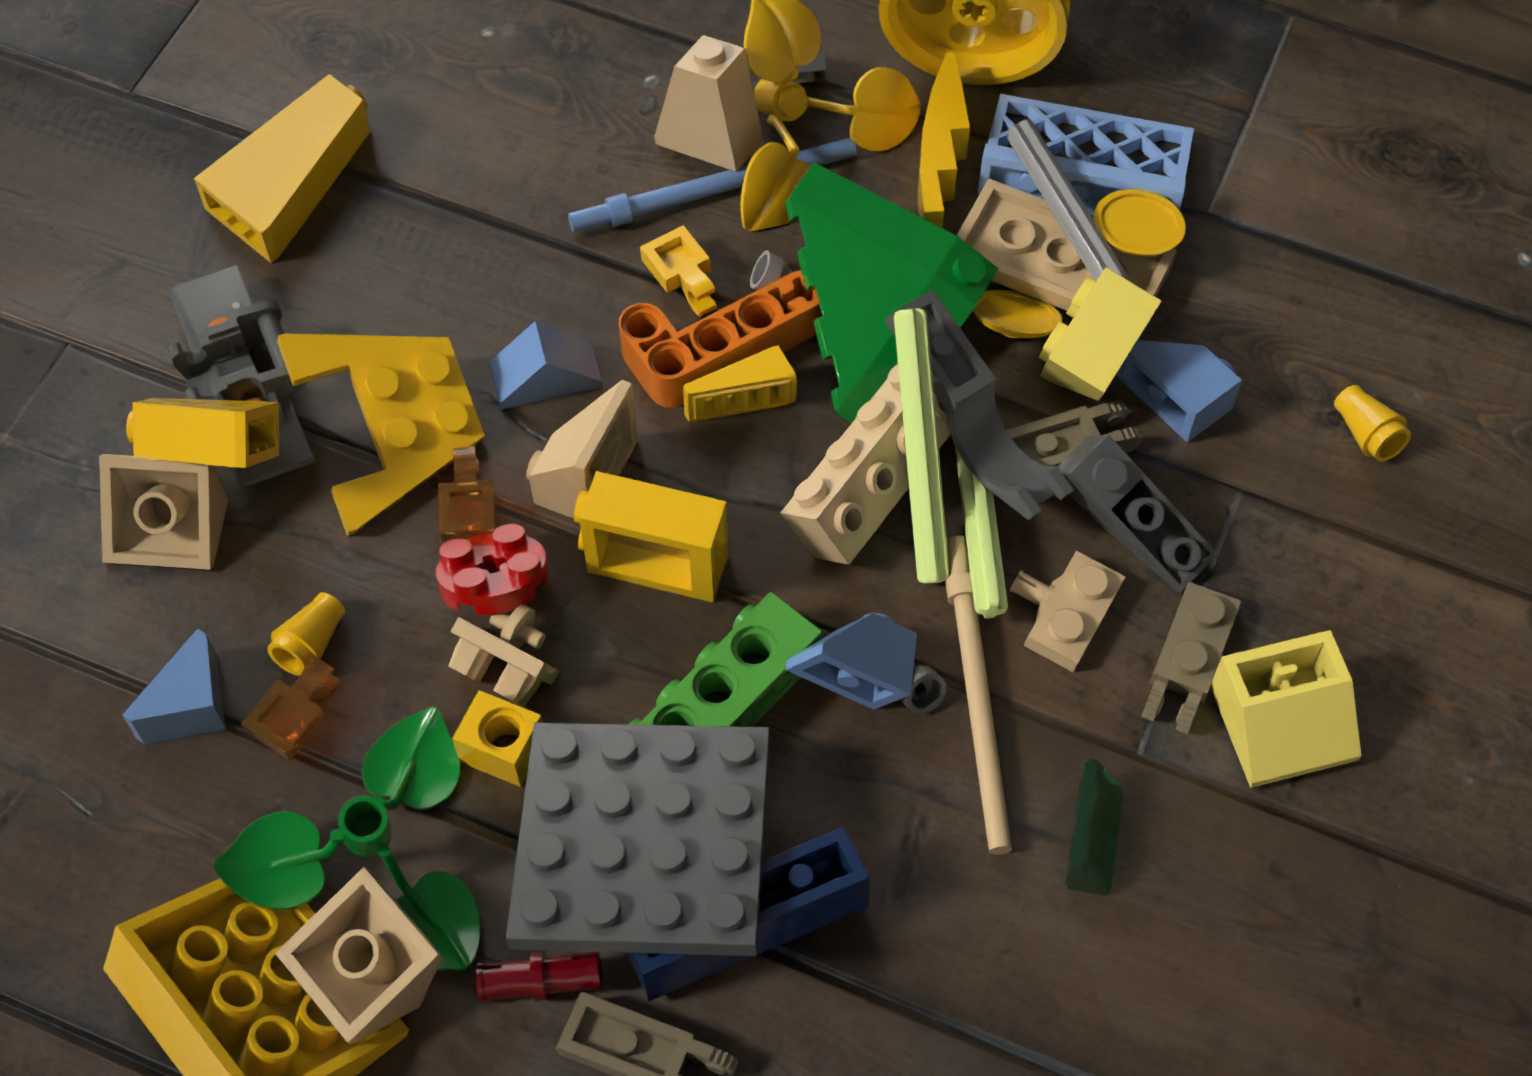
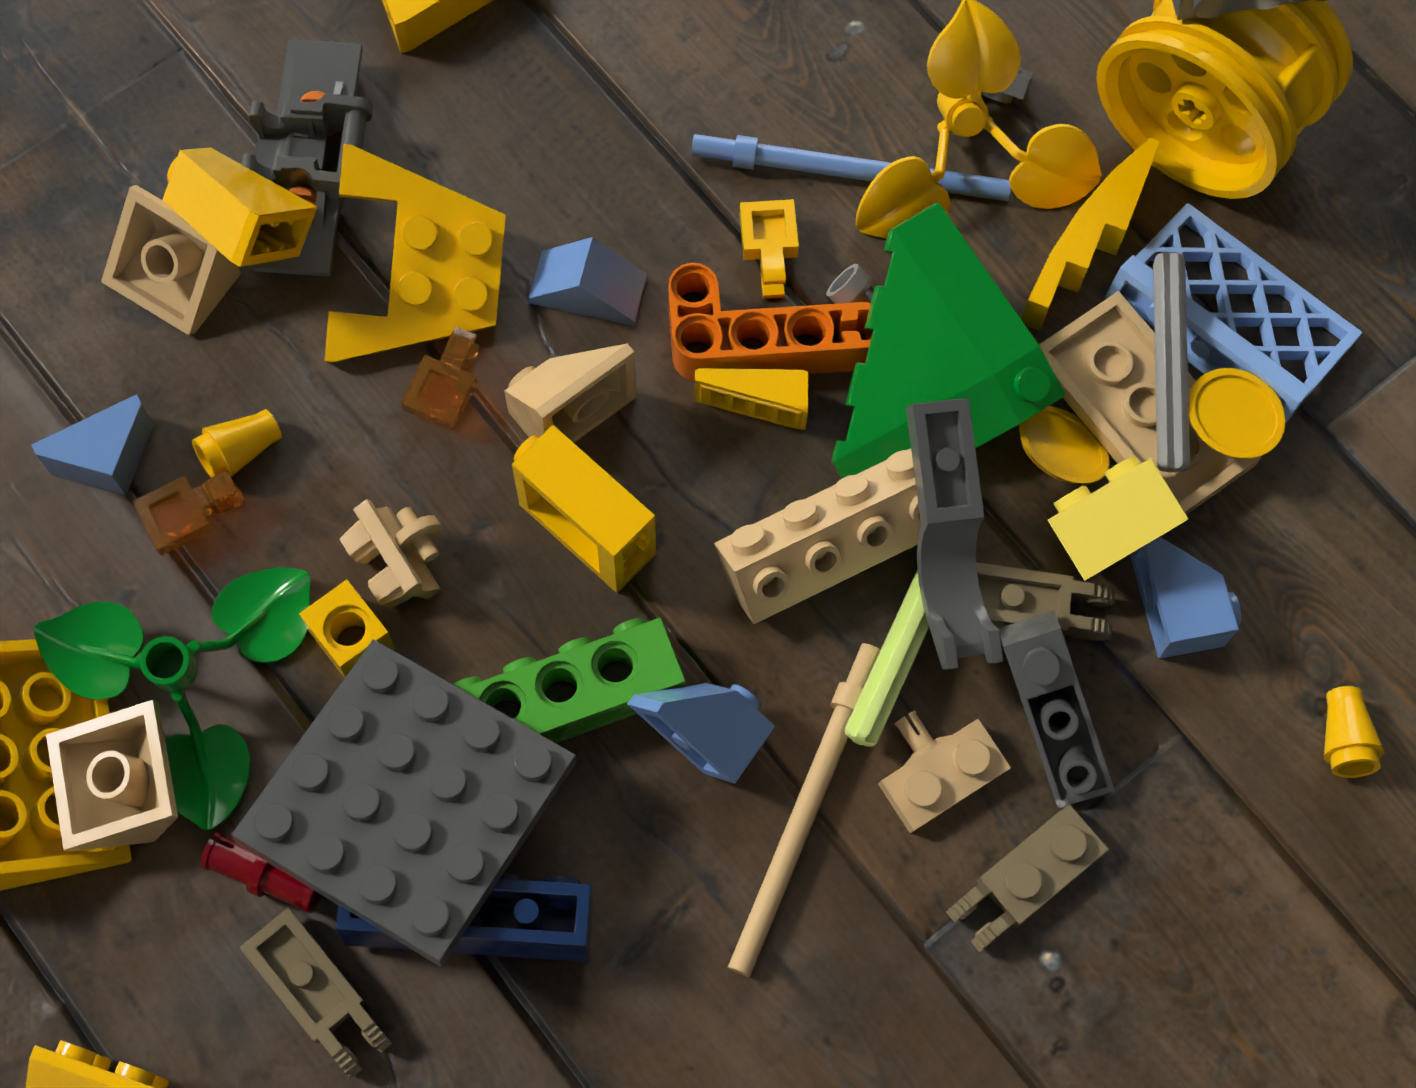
camera: 25 degrees right, 10 degrees up
(467, 564) = (406, 445): red plate -> none
(711, 106) = (881, 91): tan slope -> none
(921, 445) = (877, 544): yellowish green axle -> none
(933, 692) = (756, 790): dark grey hinge -> none
(1094, 831) = (835, 1001): clear green slope -> none
(1288, 708) = (1084, 983): light yellow slope -> none

